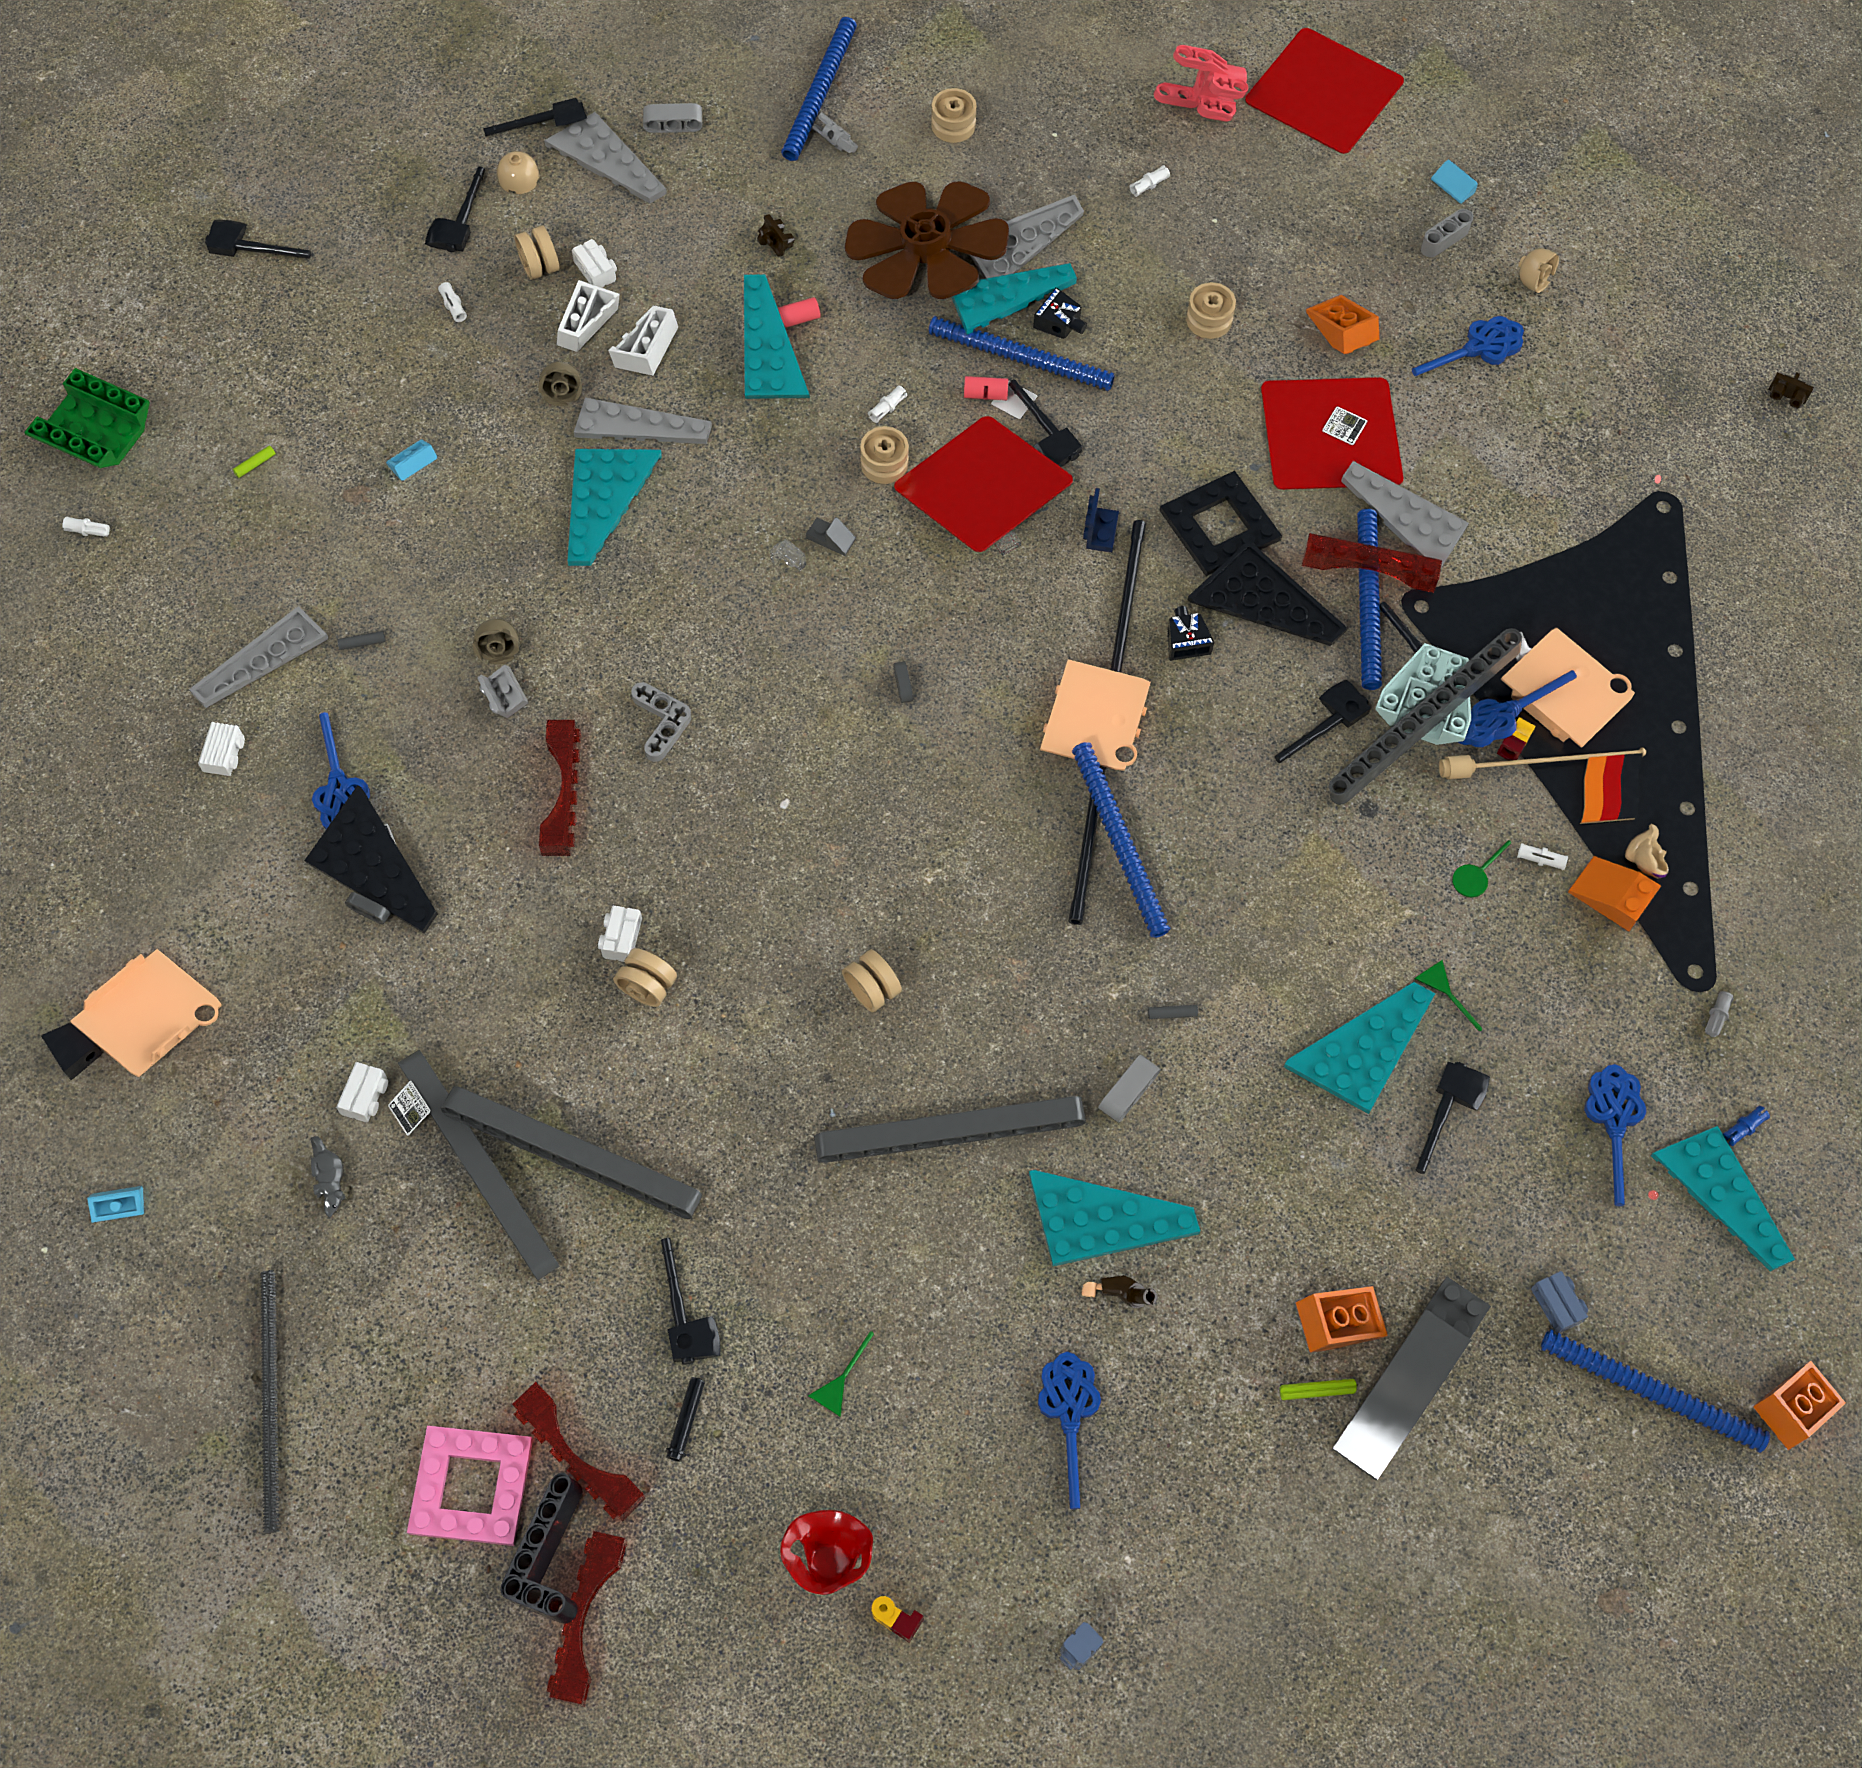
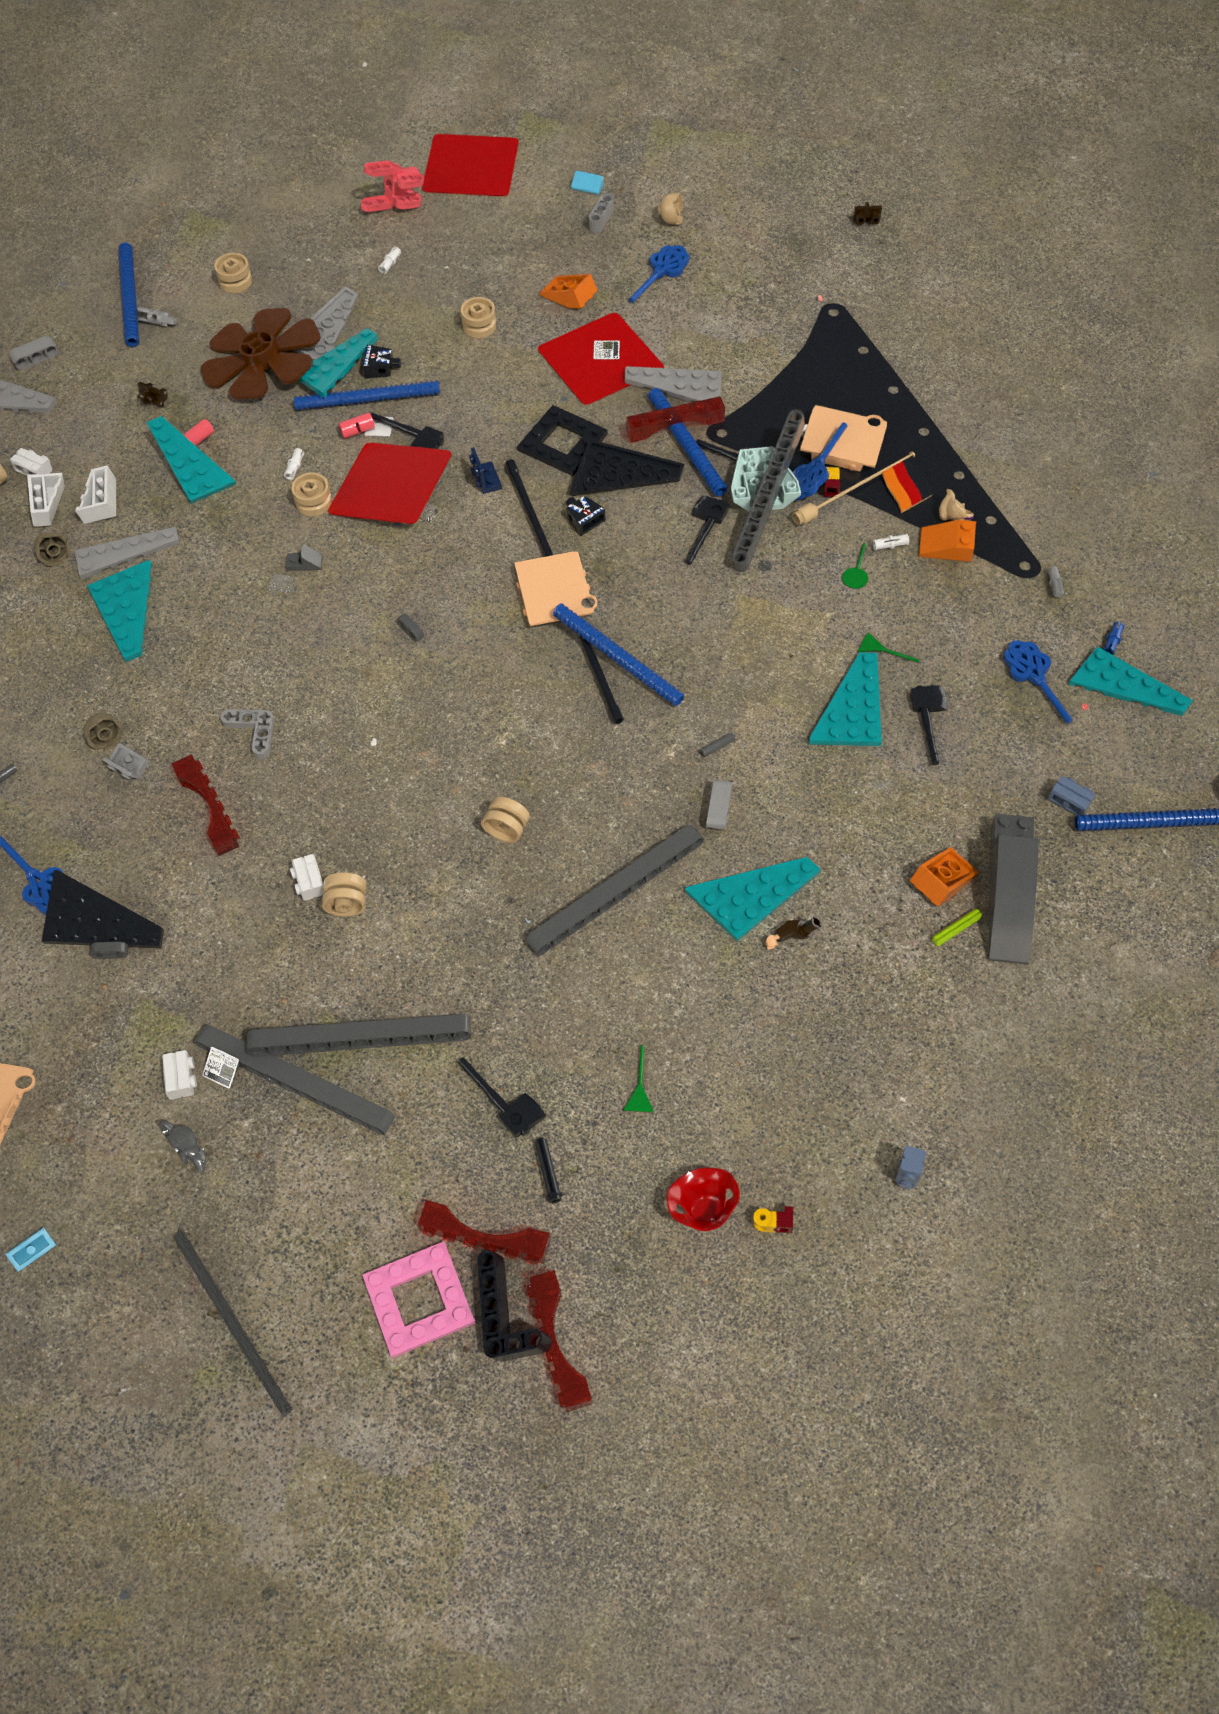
camera: 25 degrees left, 5 degrees down
(1075, 1375) = (797, 1020): blue piece -> none

